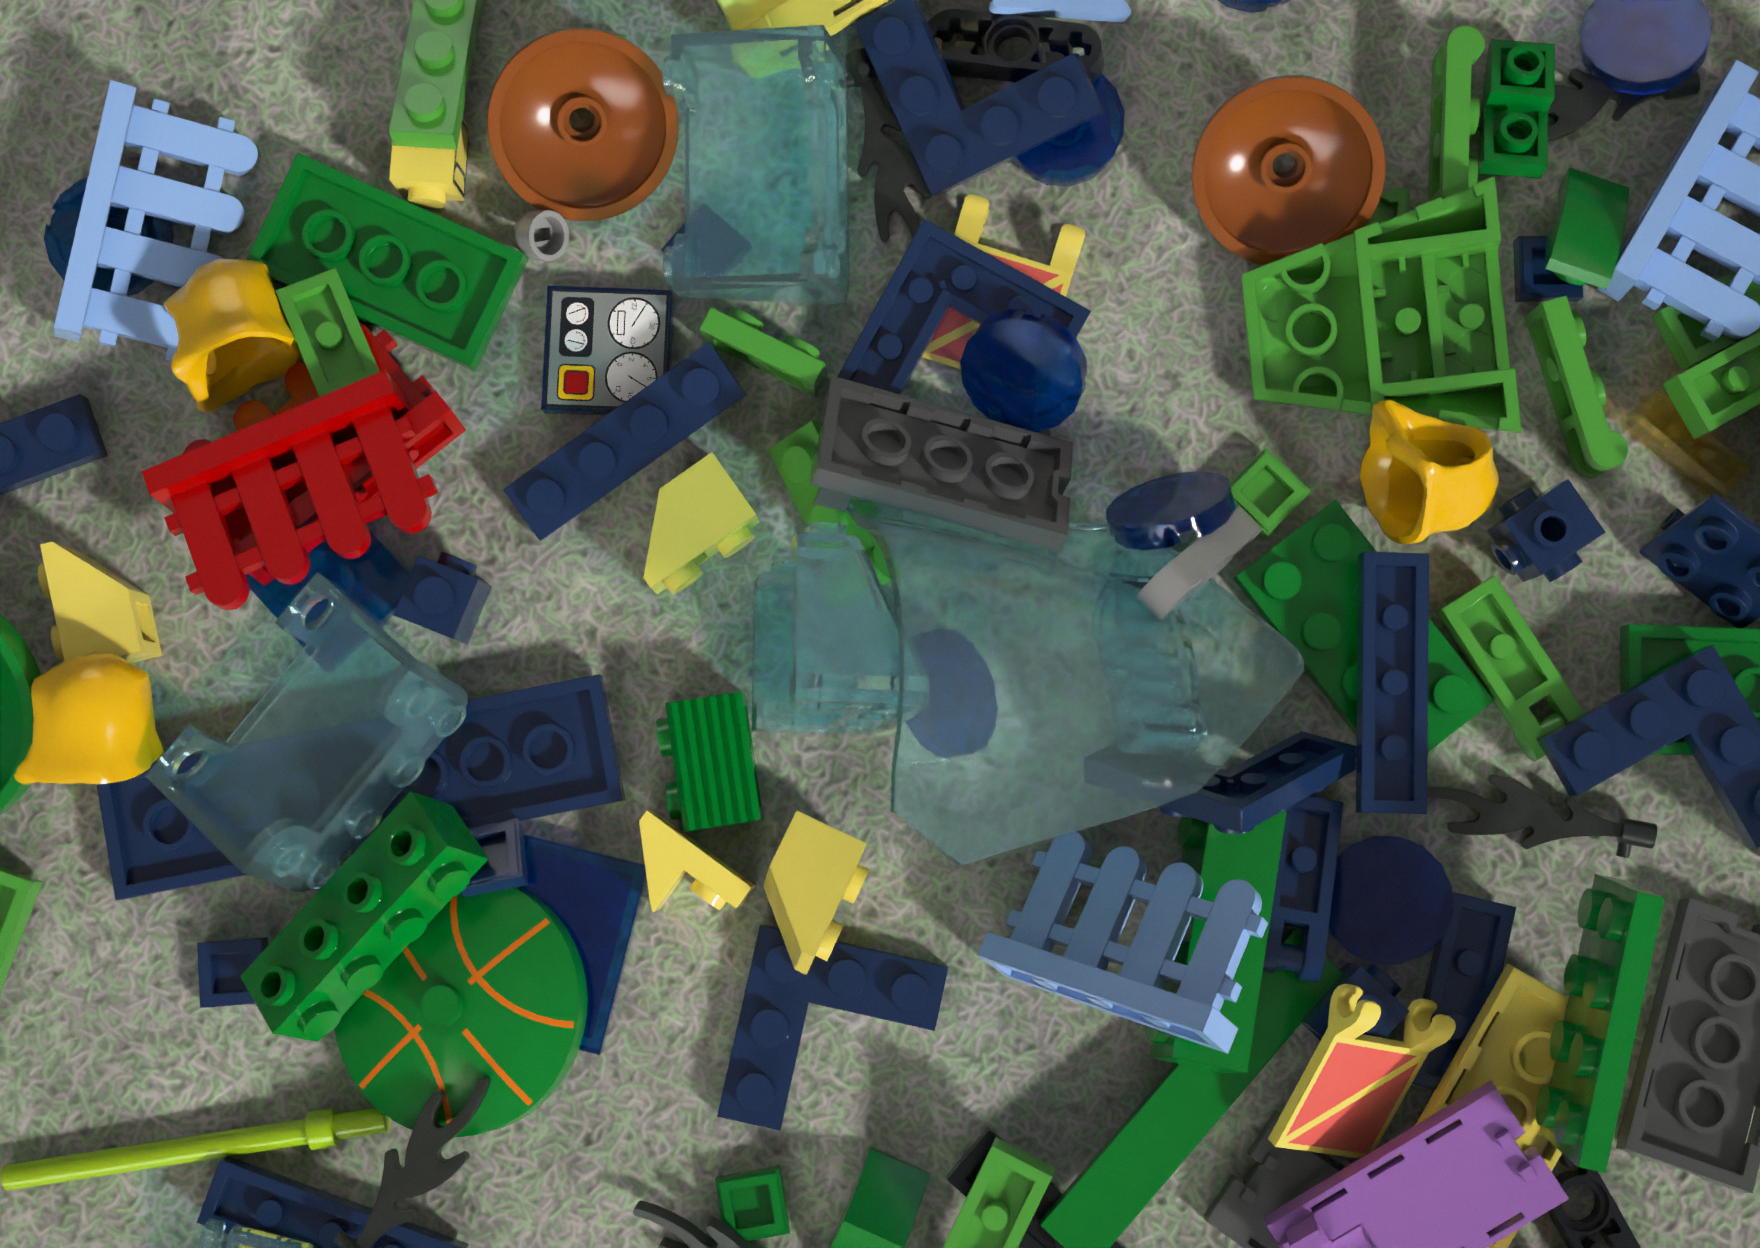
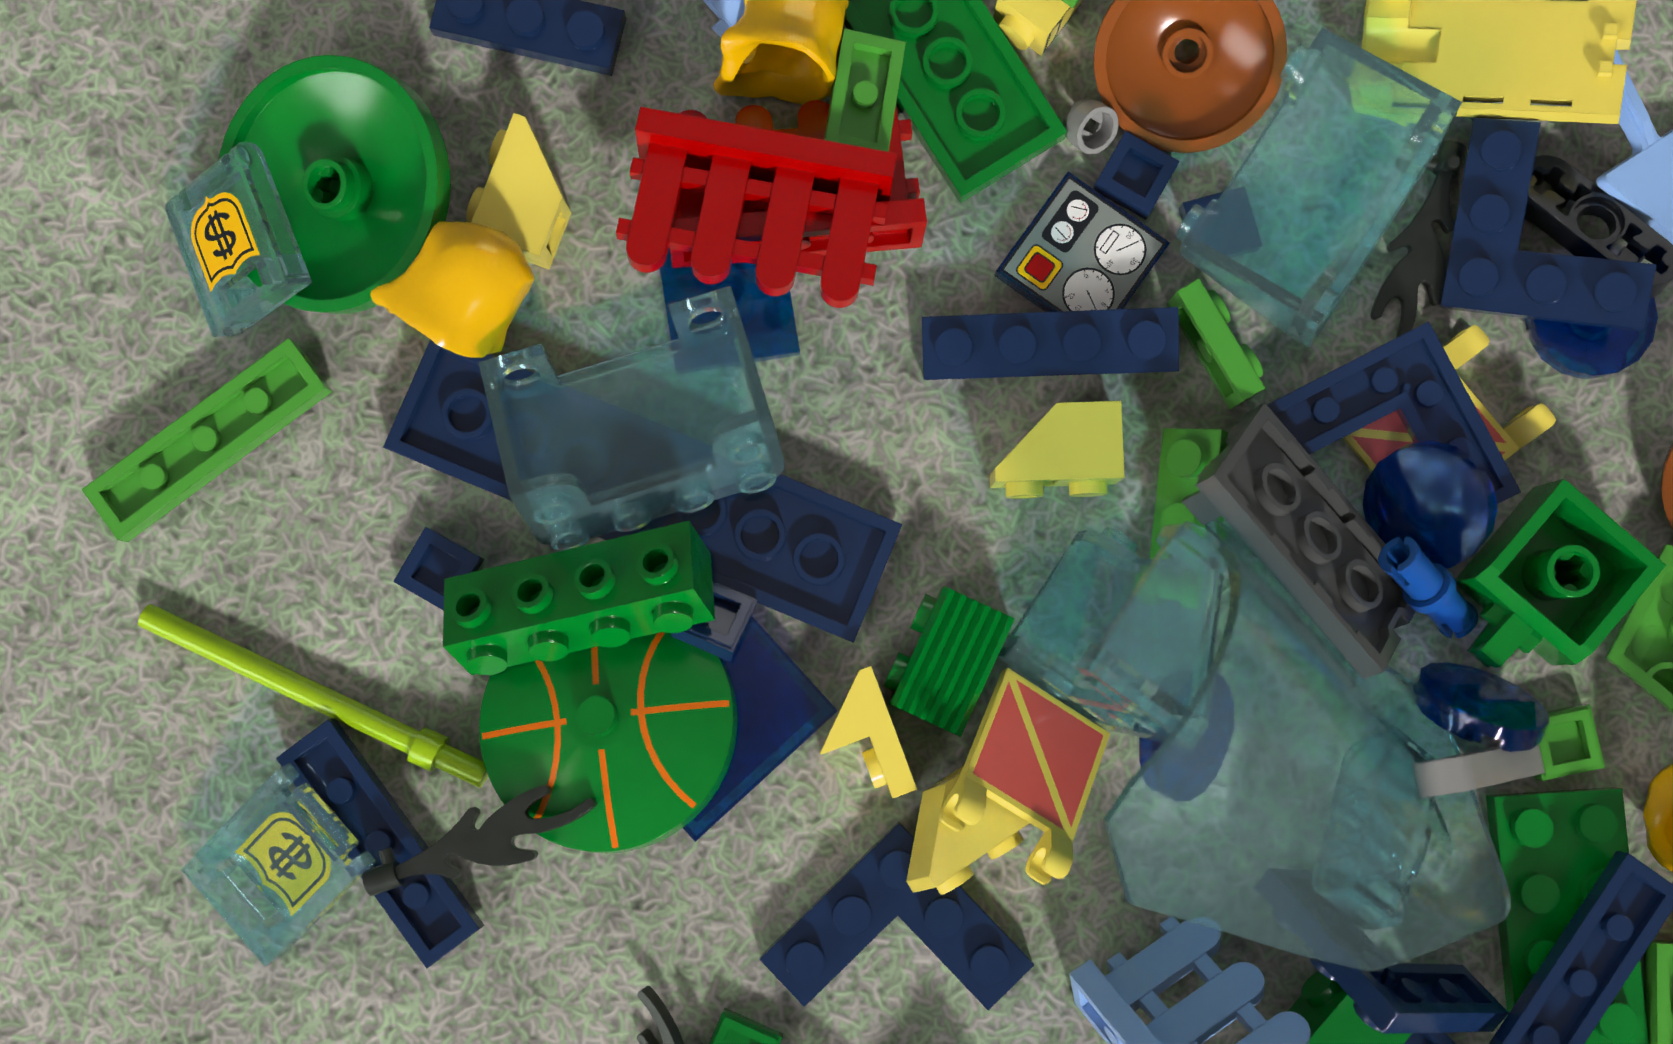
camera: 30 degrees right, 0 degrees up
(444, 596) = (815, 374): dark blue brick -> none
(607, 251) = (1136, 175): none -> dark blue tile
(834, 800) = (1035, 763): none -> flag
(1066, 439) = (1428, 587): none -> blue pin
(1159, 401) = (1516, 583): none -> green hinge

